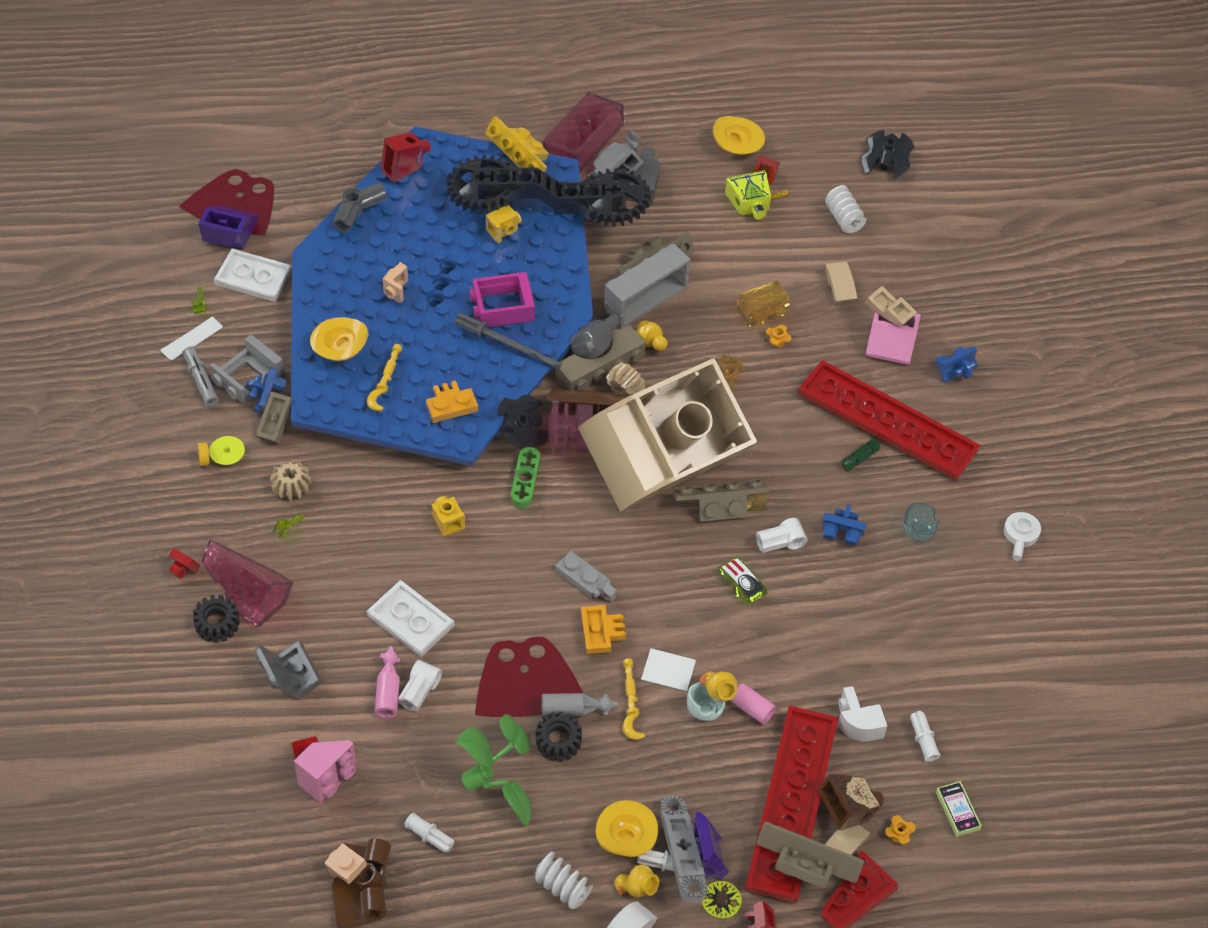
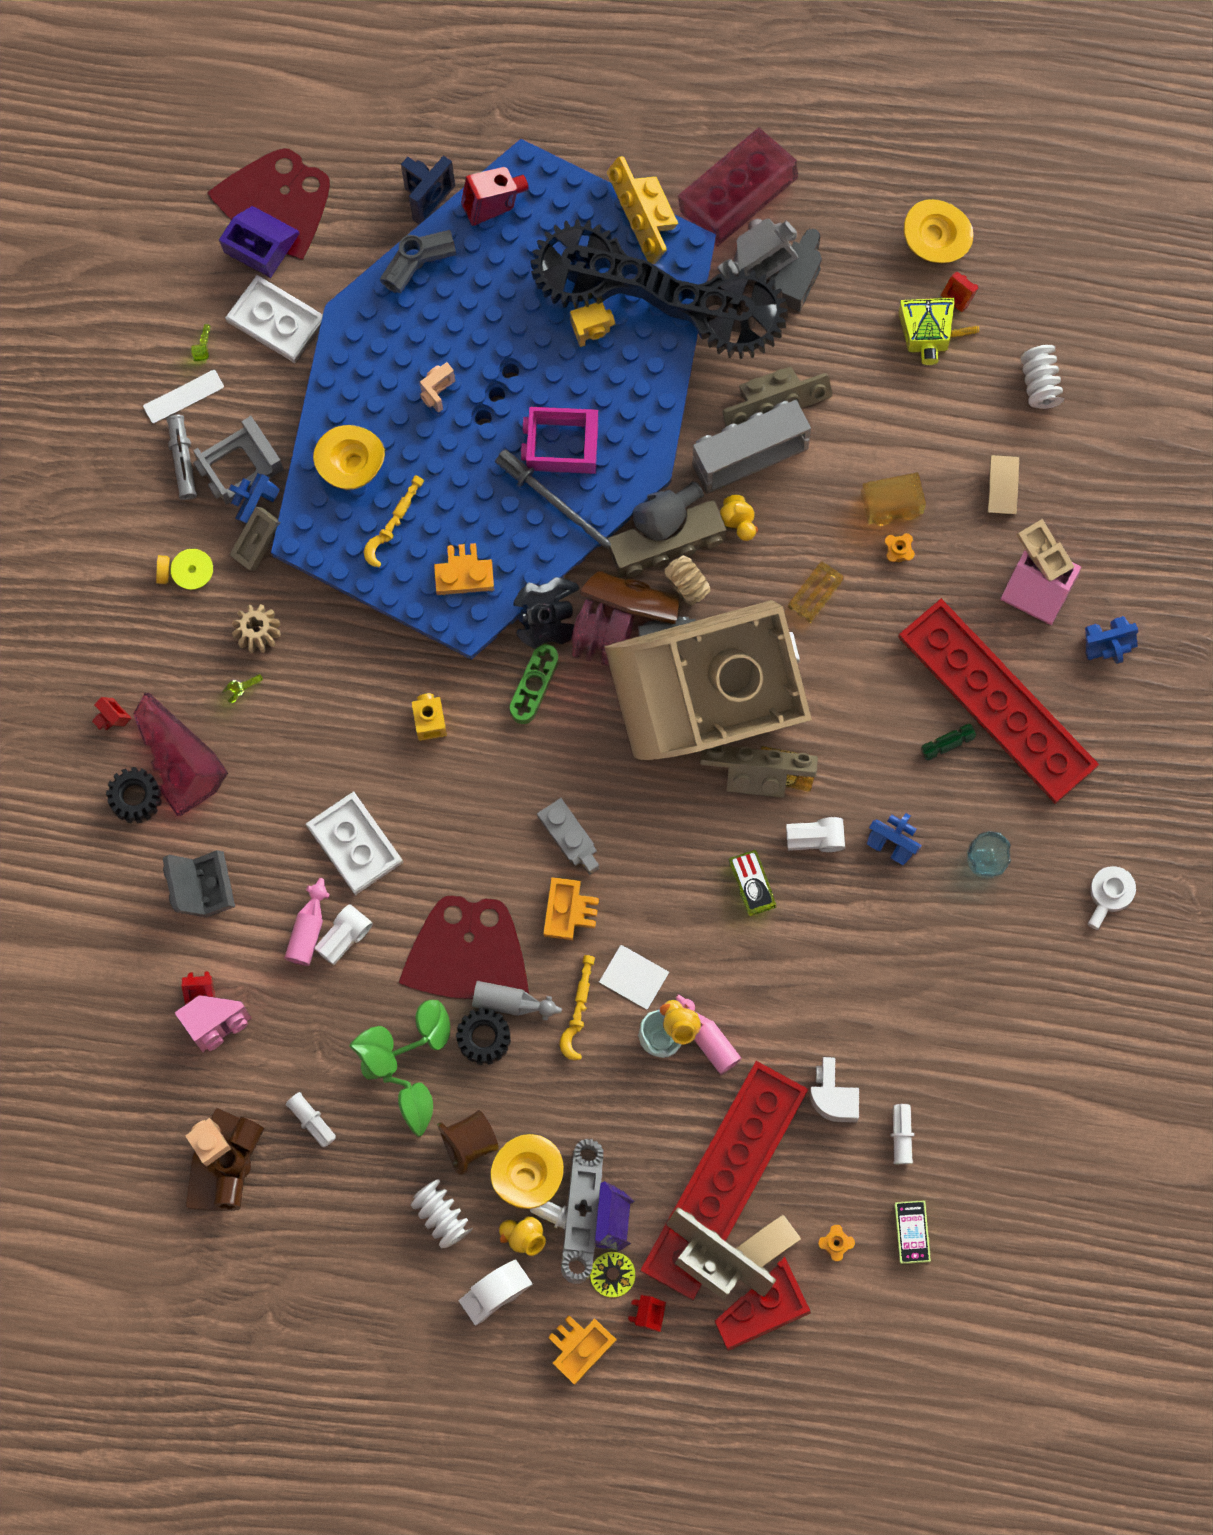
camera: 20 degrees right, 20 degrees up
(348, 165) = (427, 187): none -> dark blue bracket
(569, 815) = (468, 1140): none -> reddish brown piece
(850, 800) = (788, 1198): reddish brown torso -> none
(887, 151) = (1128, 293): black piece -> none

